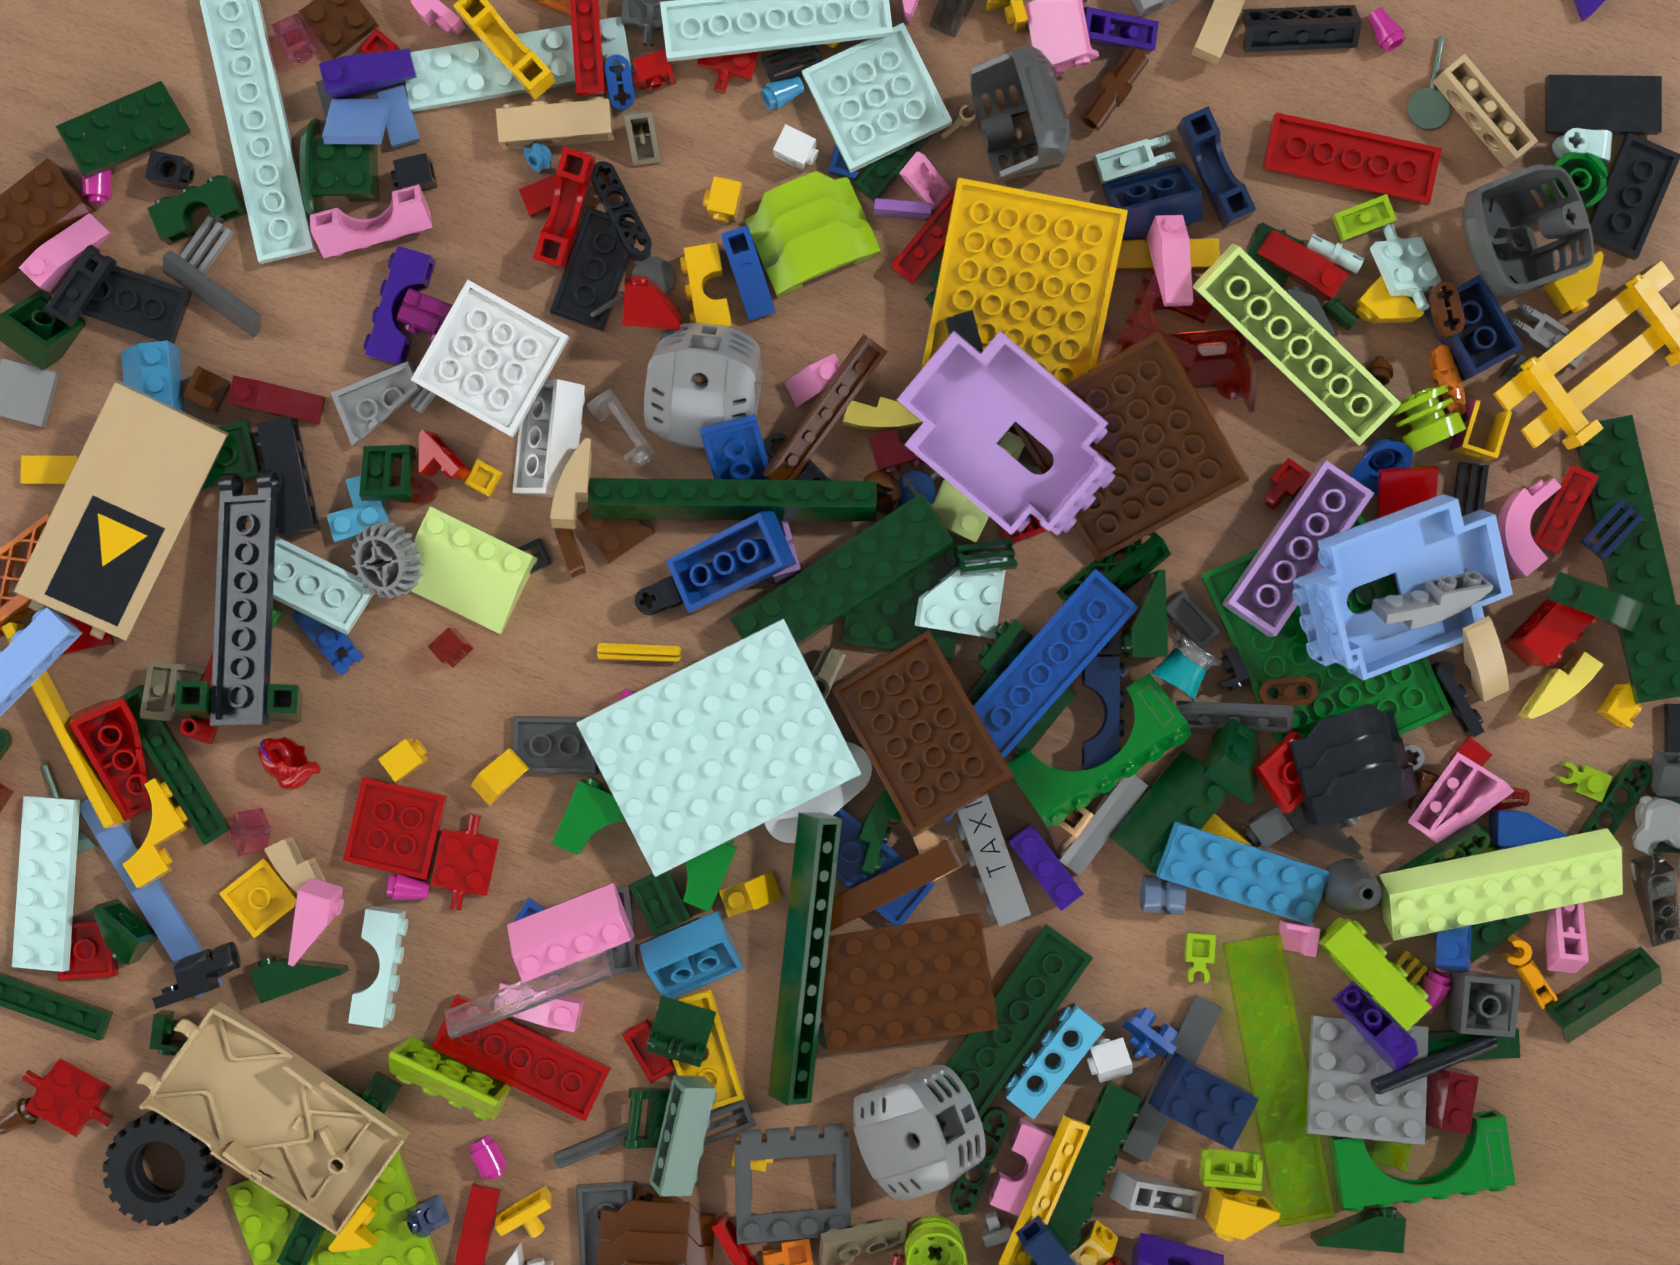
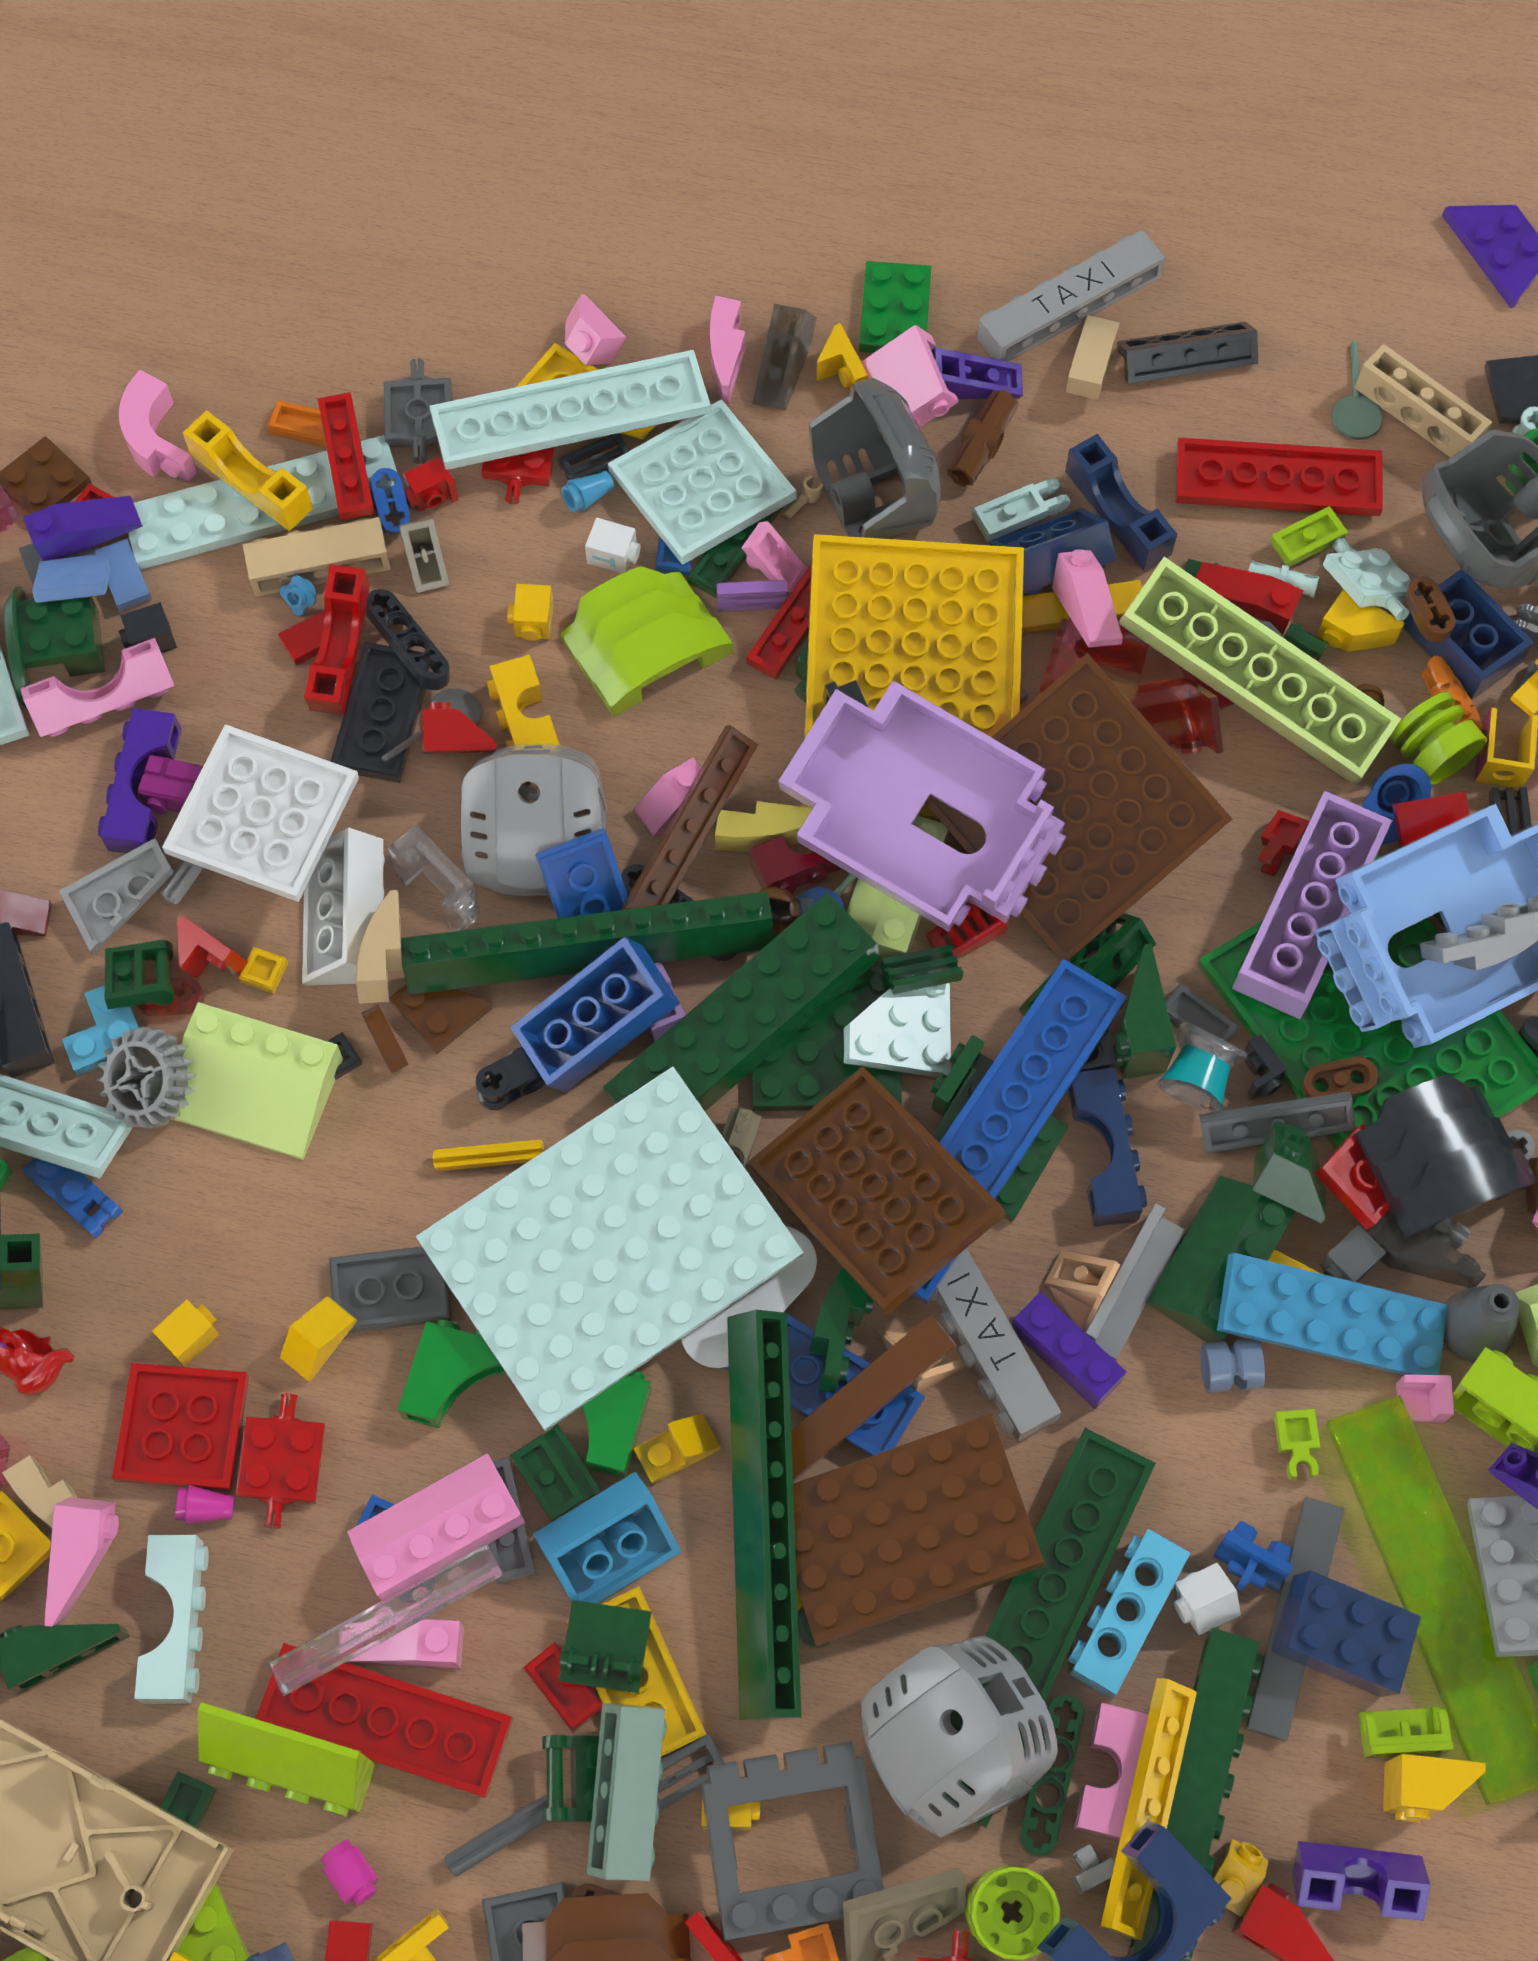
camera: 15 degrees left, 20 degrees down
(450, 647) = (238, 1178): clear red brick -> none
(748, 273) = (571, 685): blue slope -> none
(1060, 792) = (1069, 1243): green arch -> none
(1154, 1195) = (1307, 1784): light grey slope -> none
(1386, 30) = (1289, 342): dark pink cone -> none

